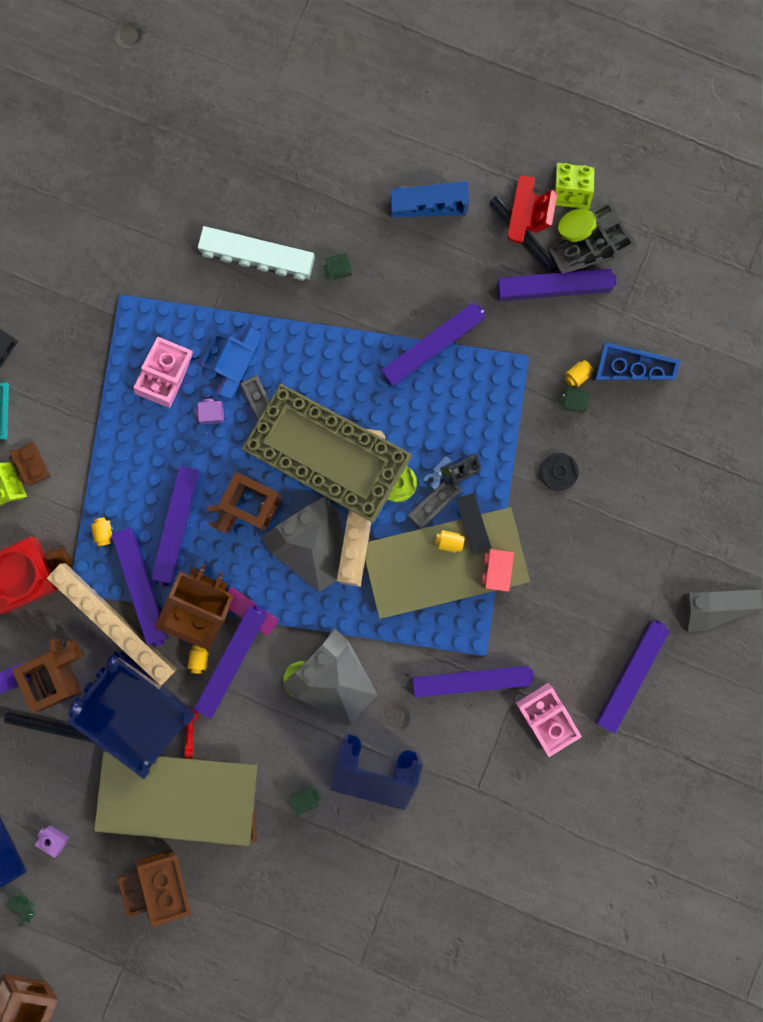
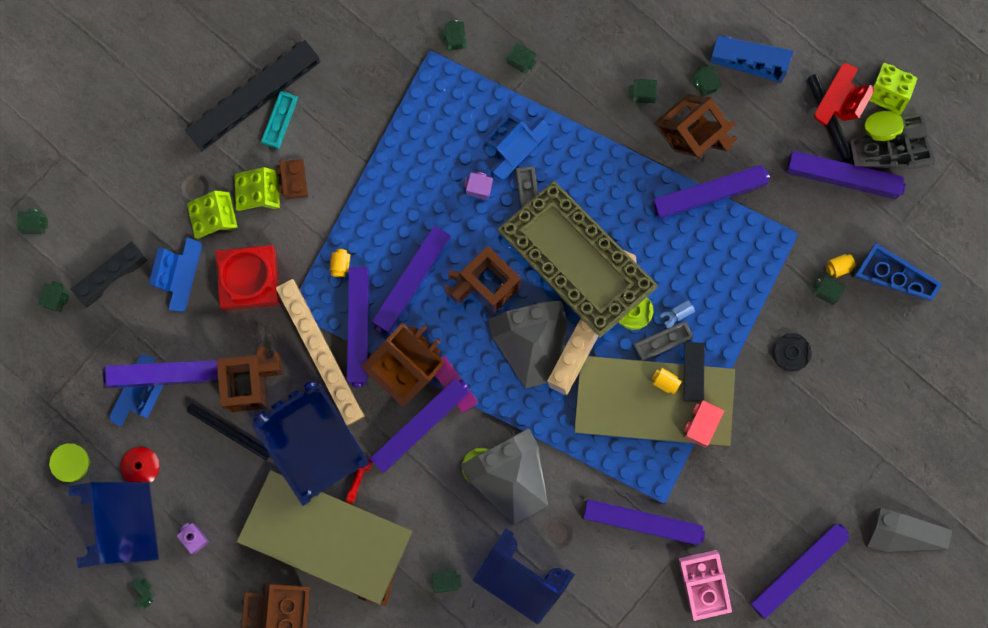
camera: 20 degrees right, 5 degrees down
(58, 557) = (289, 272): reddish brown tile -> none
(138, 272) = (455, 35): none -> clear green brick
(163, 372) = (447, 134): bright pink slope -> none
(197, 660) = (388, 413): yellow brick -> none
(210, 274) = (522, 58): none -> clear green brick
(256, 253) = (571, 53): light aqua brick -> none
(395, 236) = (707, 80): none -> clear green brick
(408, 290) = (703, 134): none -> reddish brown piece
(460, 469) = (698, 317): black slope -> none

